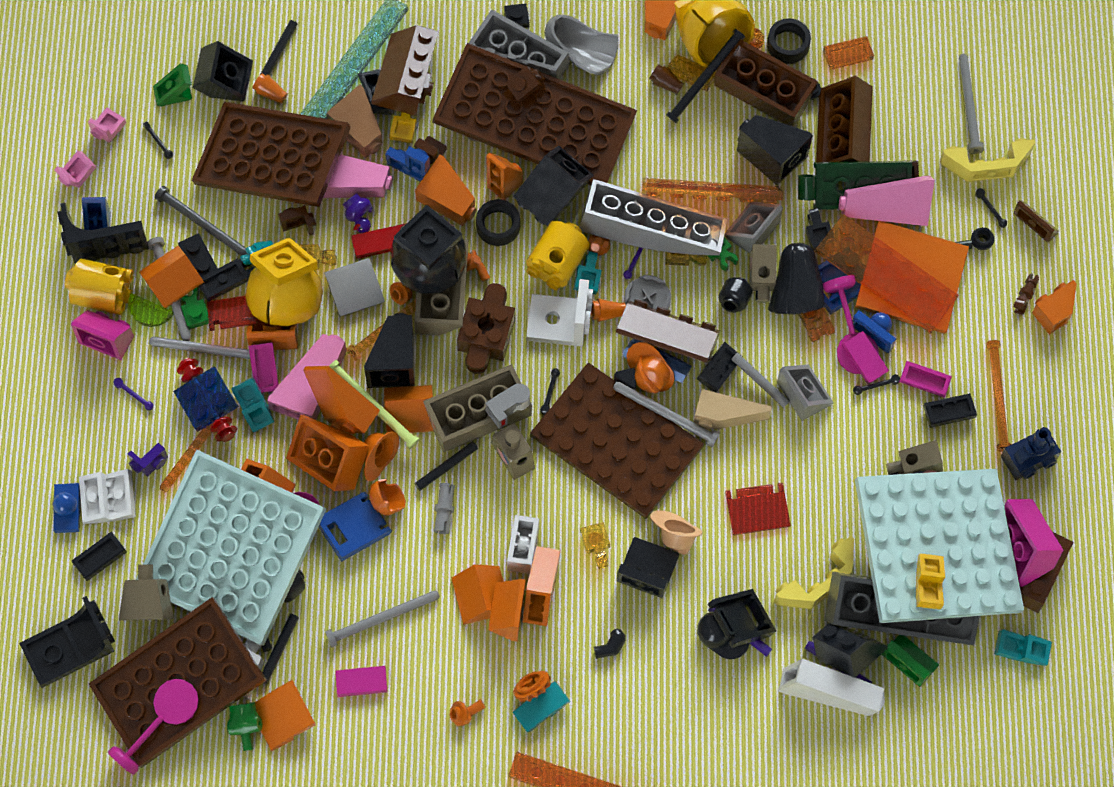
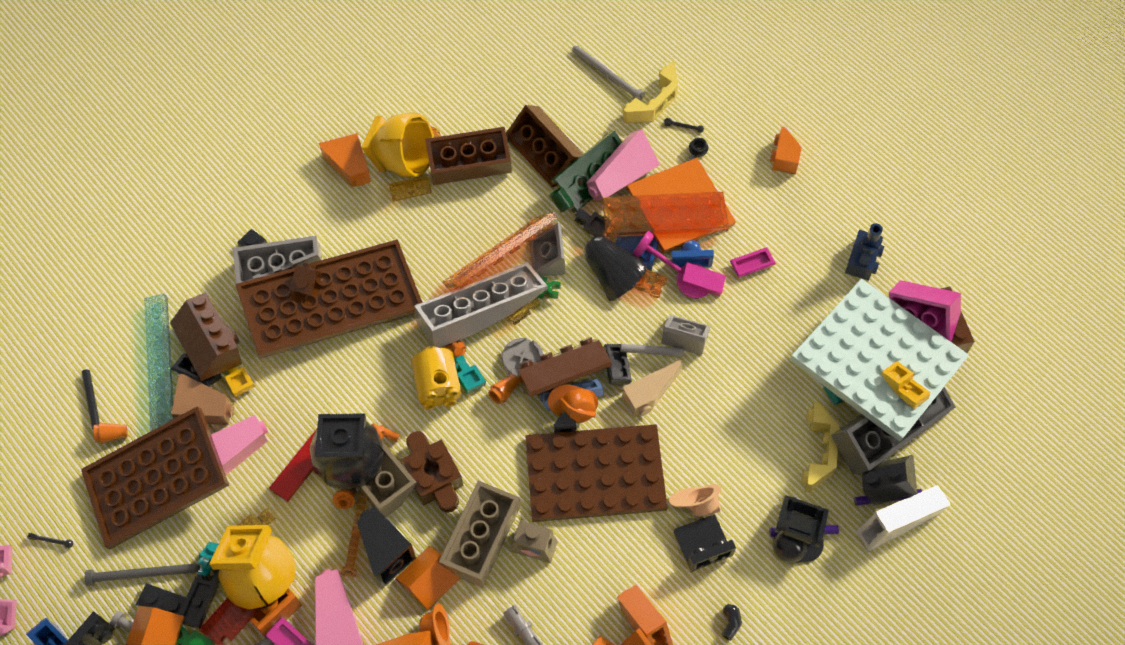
camera: 40 degrees left, 5 degrees down
(174, 87) = (29, 489): green slope -> none
(222, 72) = (60, 449): black slope -> none
(297, 217) = (213, 510): reddish brown bracket -> none
(340, 401) = (377, 616): orange slope -> none
(354, 287) = (305, 523): light grey slope -> none
(355, 209) = (256, 464): dark purple animal -> none
(383, 414) = (401, 597): yellowish green bar -> none
(412, 162) = (273, 398): blue plate -> none
(431, 147) = (273, 380): reddish brown bracket -> none
(446, 193) = (312, 398): orange slope -> none
(446, 465) = (493, 597): black bar -> none
(494, 206) = (368, 376): black tyre -> none
(502, 175) = (346, 356): orange slope -> none
(508, 402) = (505, 504): light grey leg -> none
(522, 544) = (605, 603): white brick -> none
(544, 408) = (525, 494): black hinge -> none
(552, 185) = (389, 334): black slope -> none
(572, 315) = (486, 411): white bracket -> none
(586, 47) = (328, 224): light grey hair -> none
(596, 540) = (650, 555): clear yellow plate -> none
(628, 273) = (494, 353): dark purple hinge -> none
(666, 79) = (396, 205): reddish brown cone -> none
(667, 413) = (657, 415): light grey bar -> none
(706, 74) = (424, 179): black bar -> none
(735, 294) = (580, 307): black head -> none
(757, 509) = (733, 438): clear red piece -> none
(762, 263) = (584, 276): dark tan torso -> none
(773, 146) = (512, 191): black slope -> none
(793, 26) = (452, 108): black tyre -> none
(848, 53) = (501, 99): clear orange tile -> none
(894, 380) = (733, 279): black hinge -> none
(910, 659) = (930, 452): green panel -> none
(917, 459) = (806, 317): dark tan torso -> none
(950, 410) = (787, 269): black plate -> none
(993, 346) = (841, 263): clear orange bar -> none
(1023, 648) = (984, 382): teal slope -> none
(1025, 294) = (758, 160): reddish brown piece -> none
(1035, 221) = (725, 112): reddish brown slope -> none

